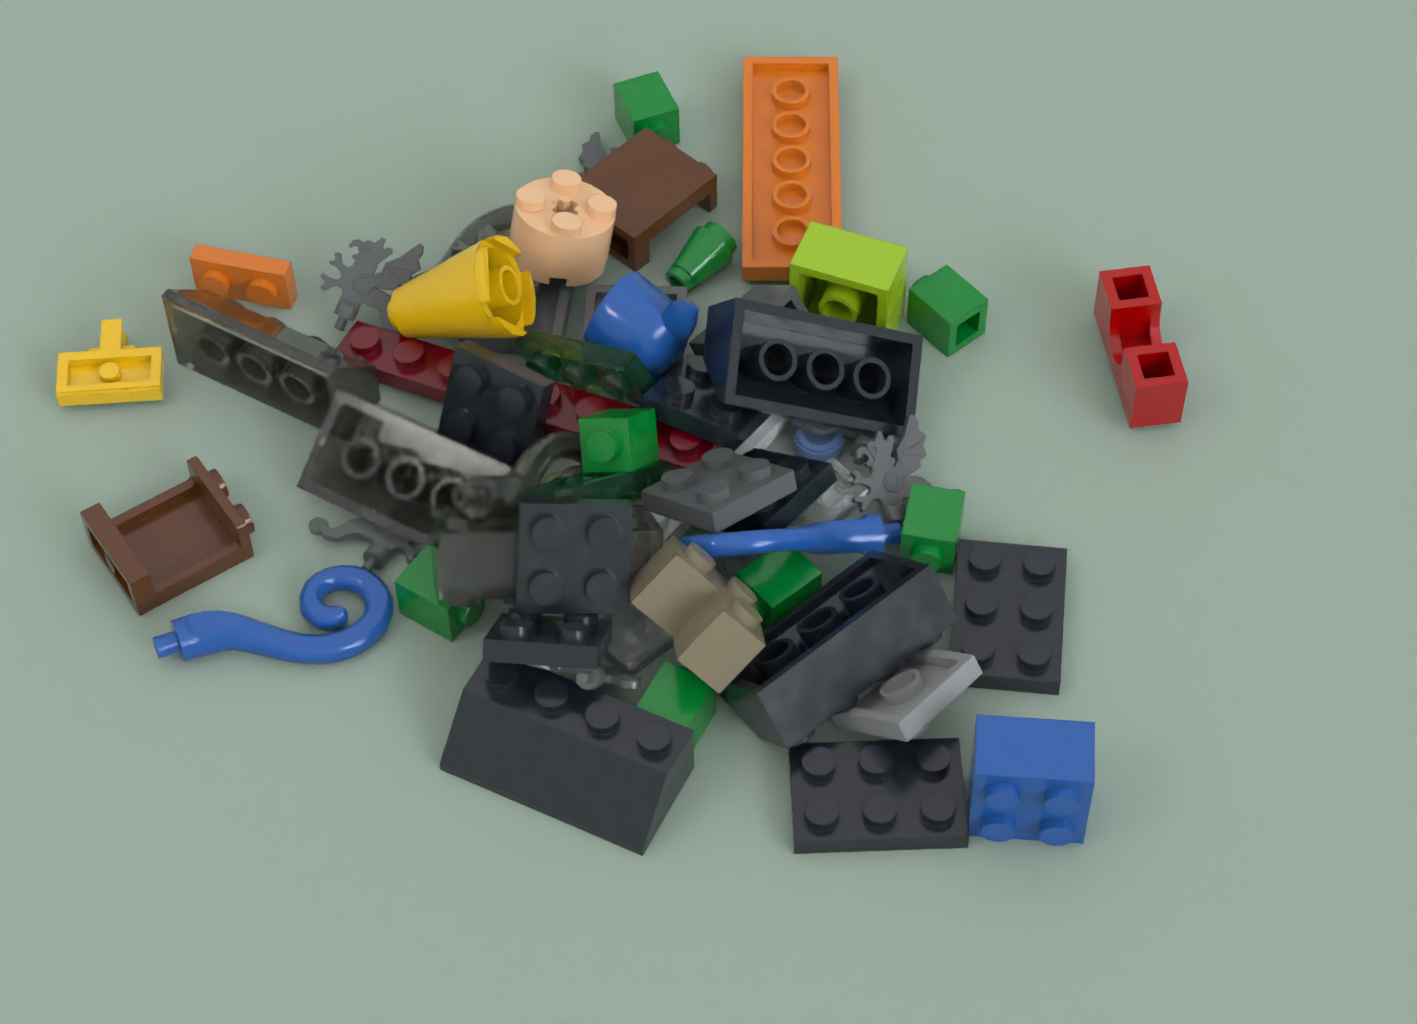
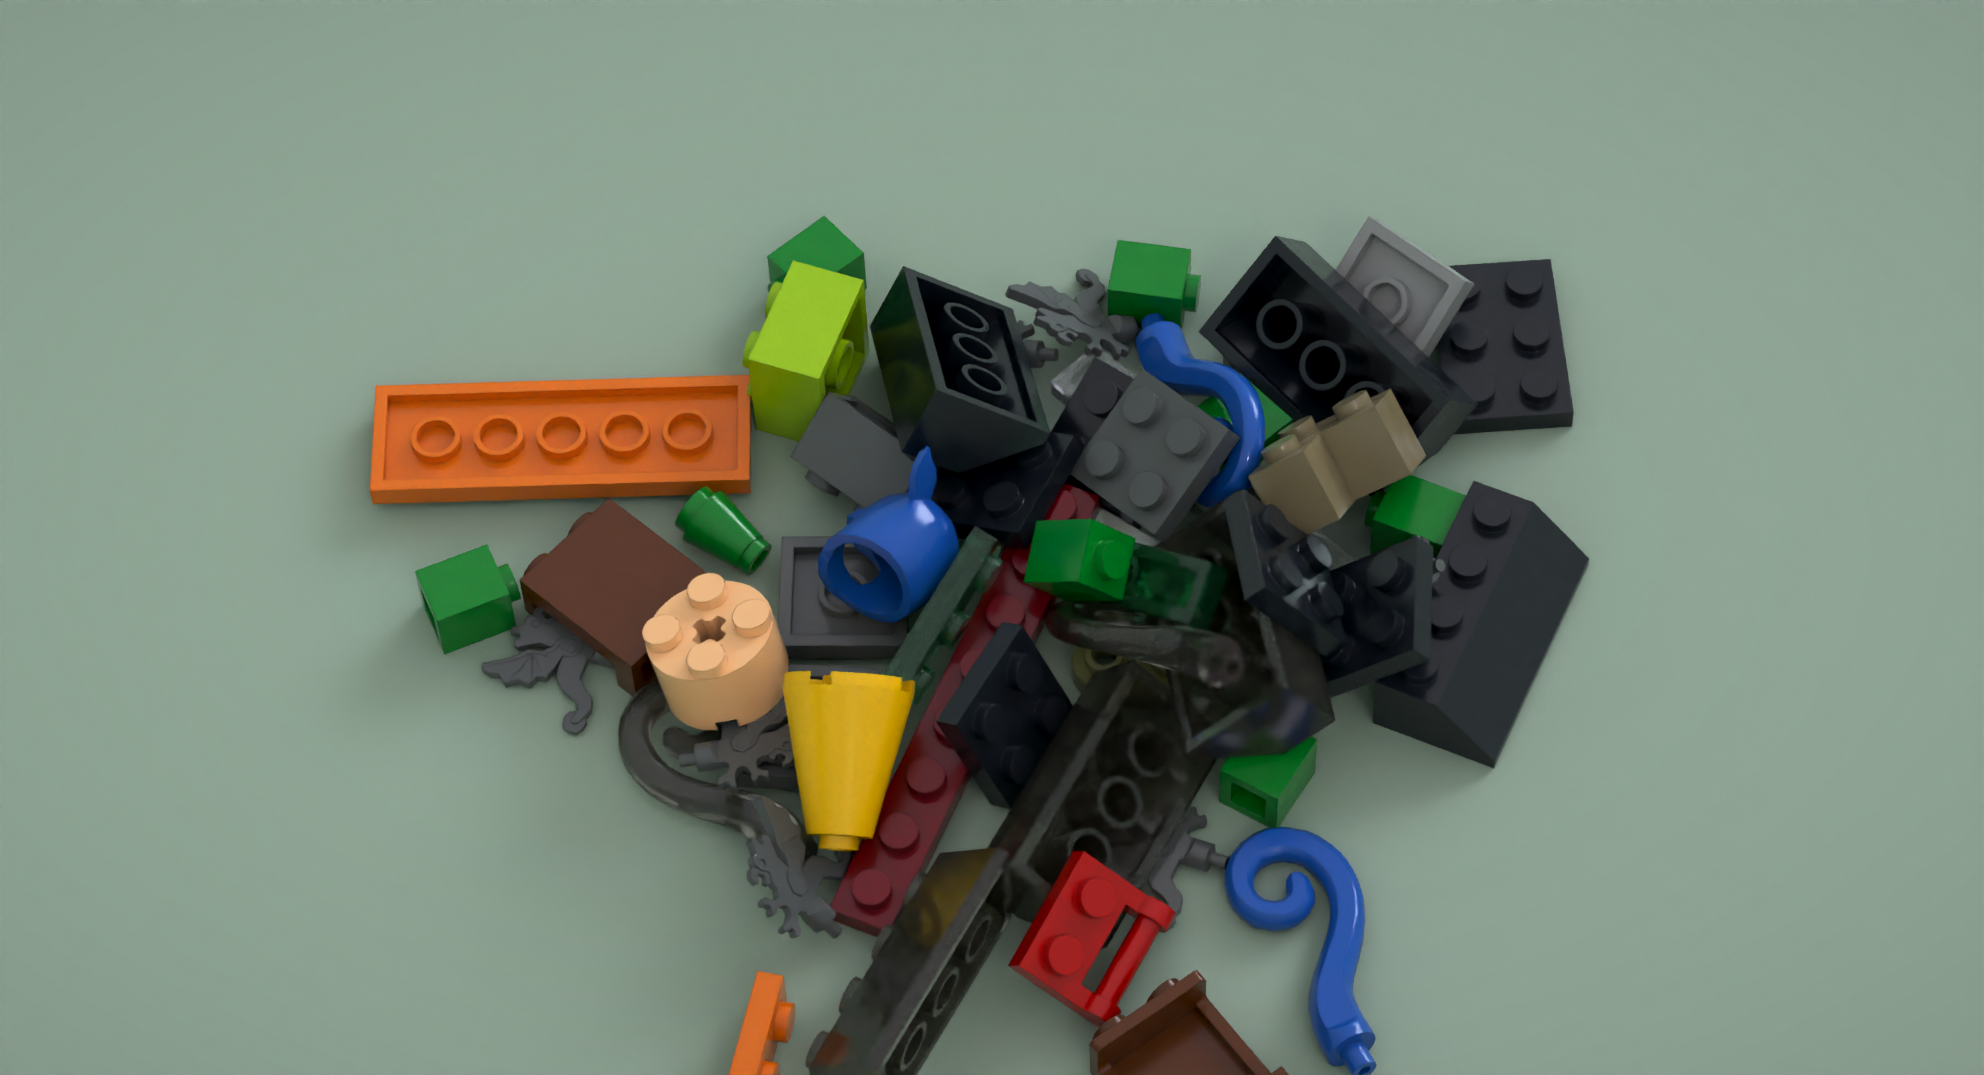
camera: 90 degrees left, 5 degrees up
(299, 449) = (1074, 929): none -> red plate
(1011, 614) = (1236, 214): black plate -> none
(1031, 779) = (1505, 181): blue brick -> none
(1144, 369) = (929, 81): red arch -> none

